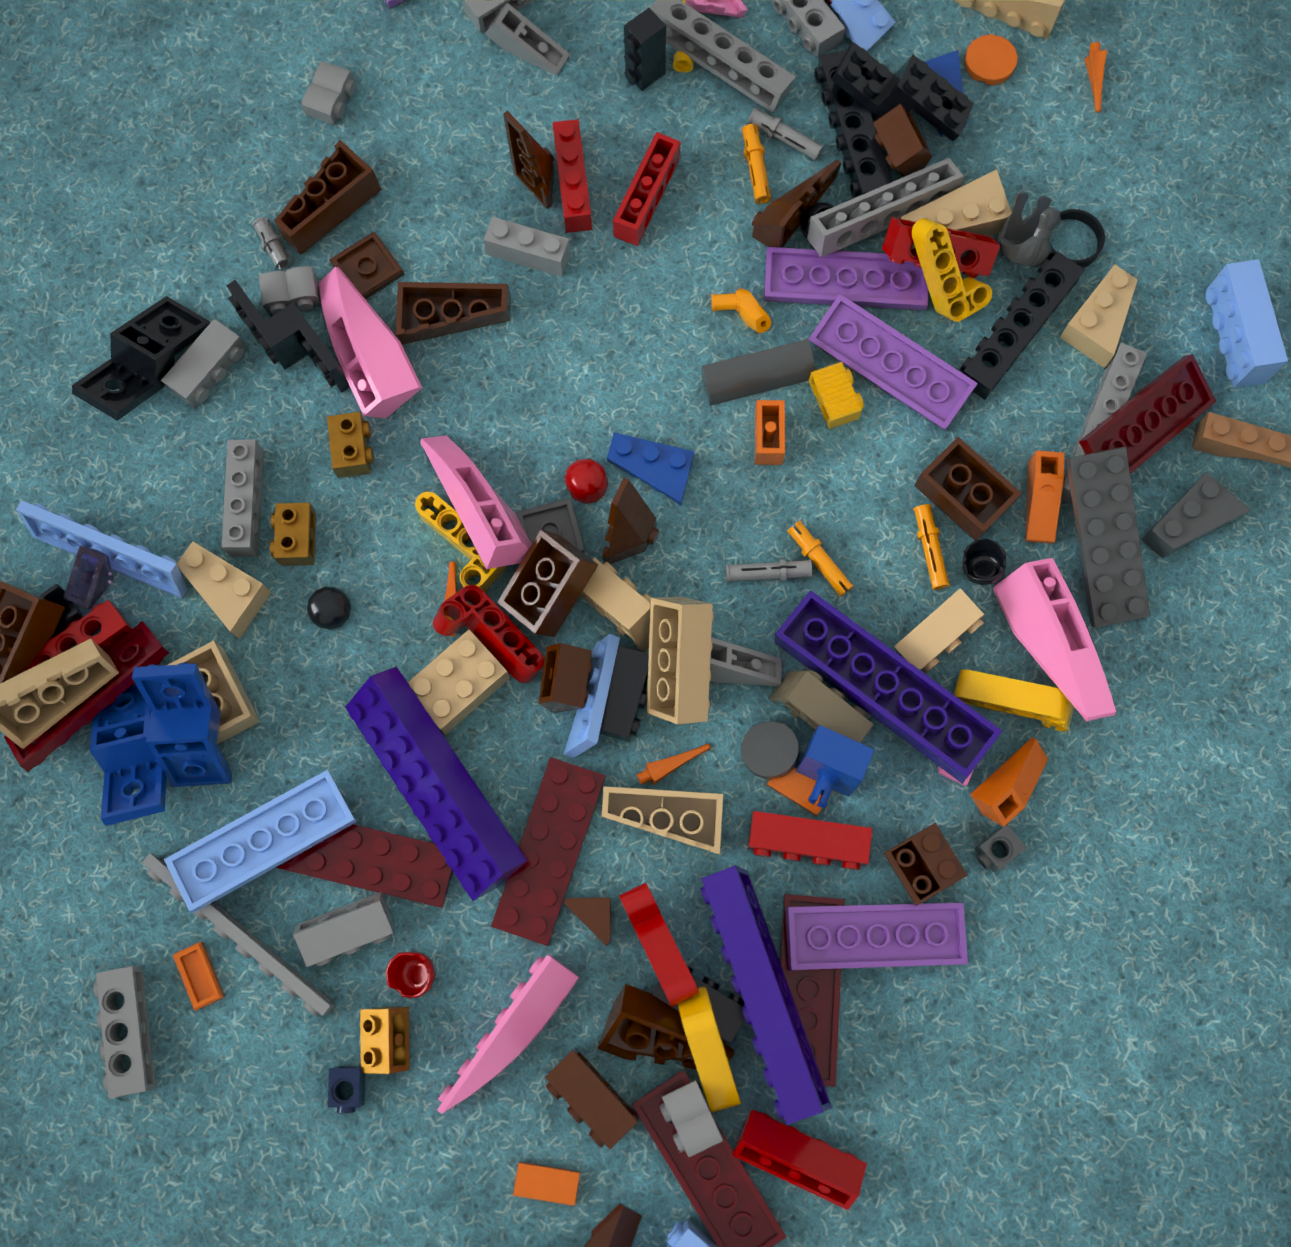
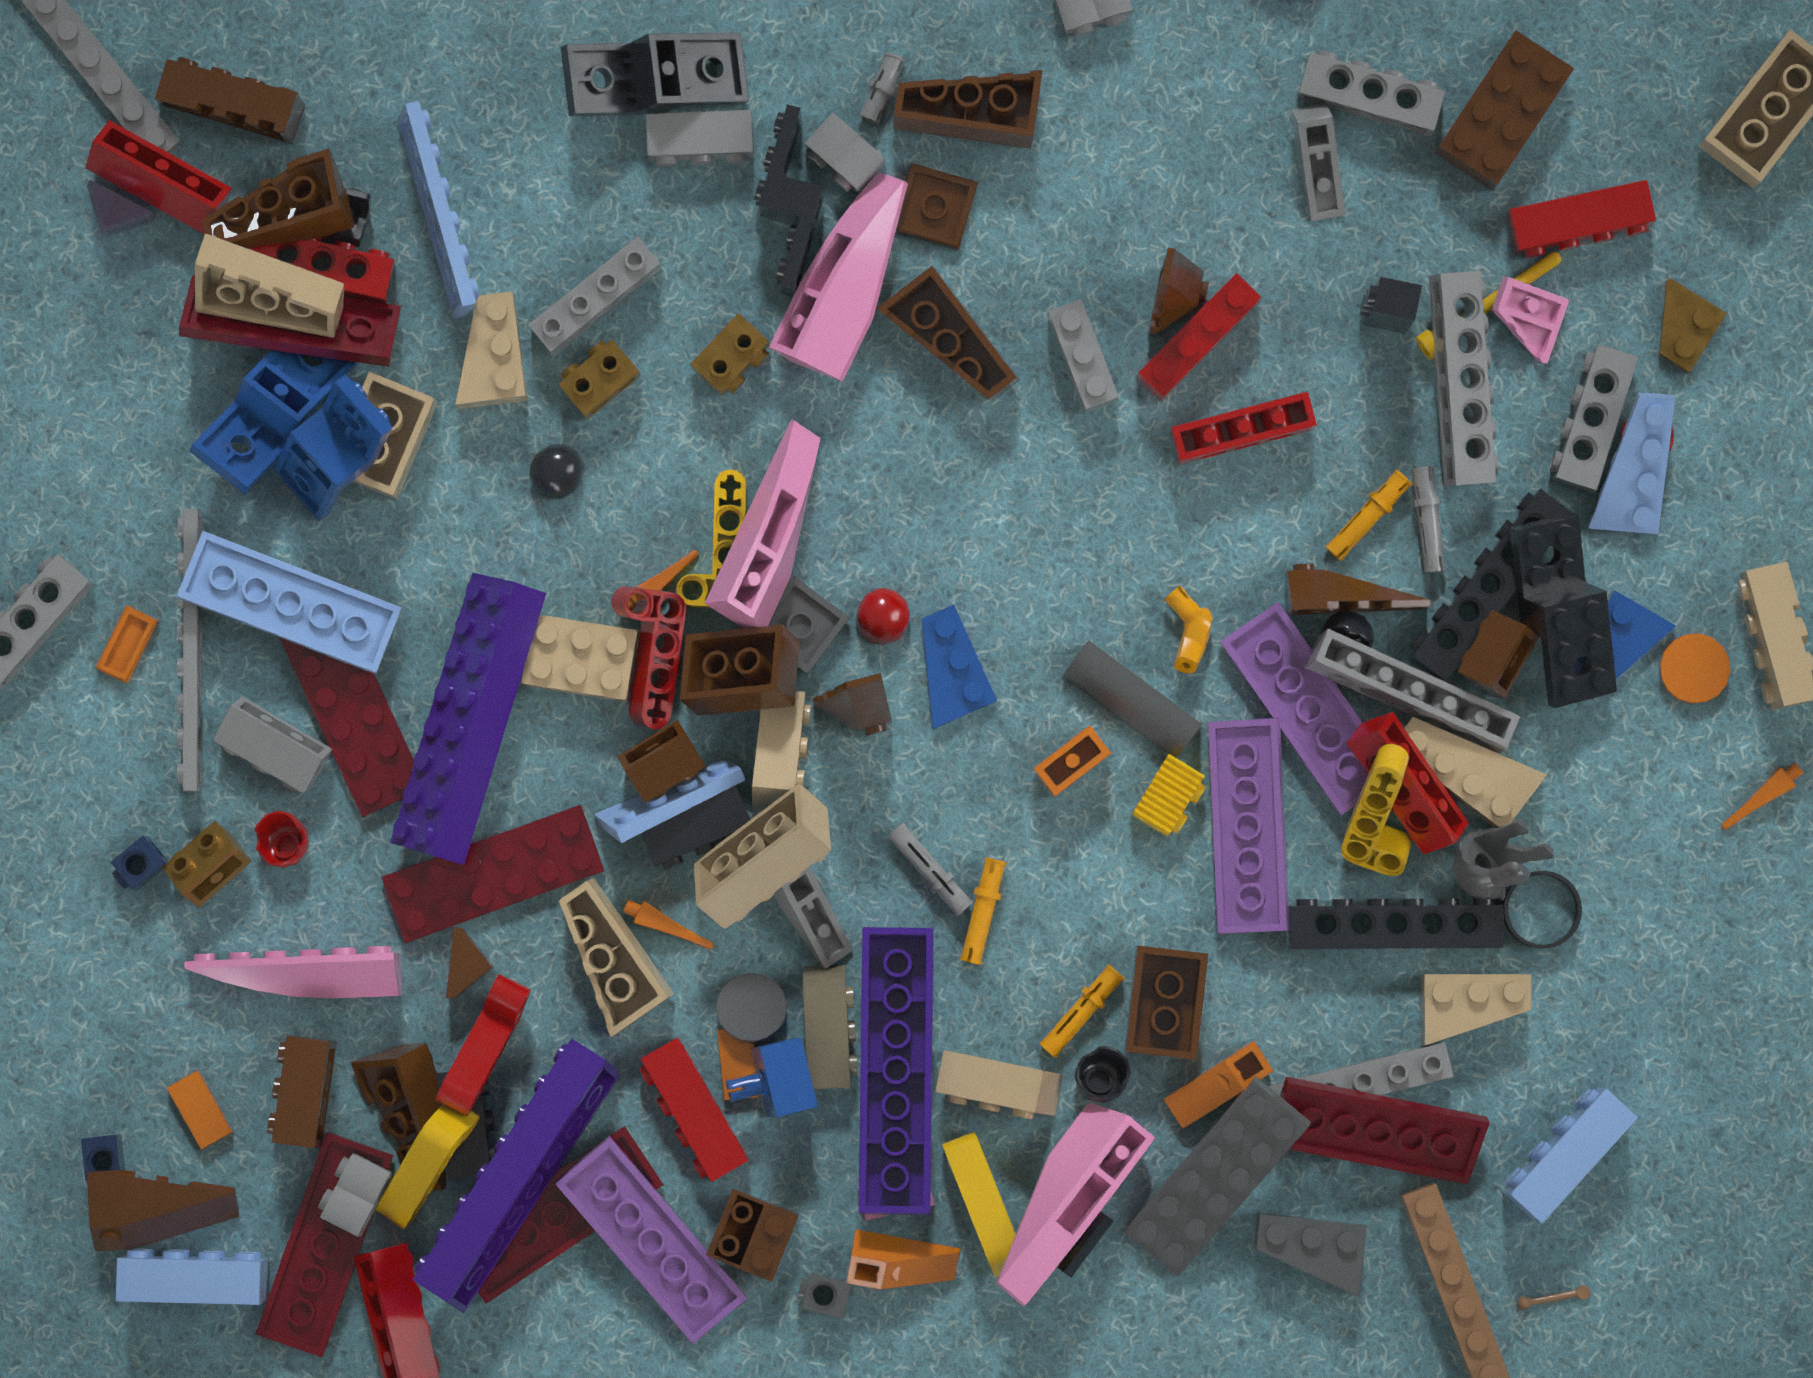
camera: 50 degrees right, 10 degrees up
(88, 577) = (398, 218): slope -> none

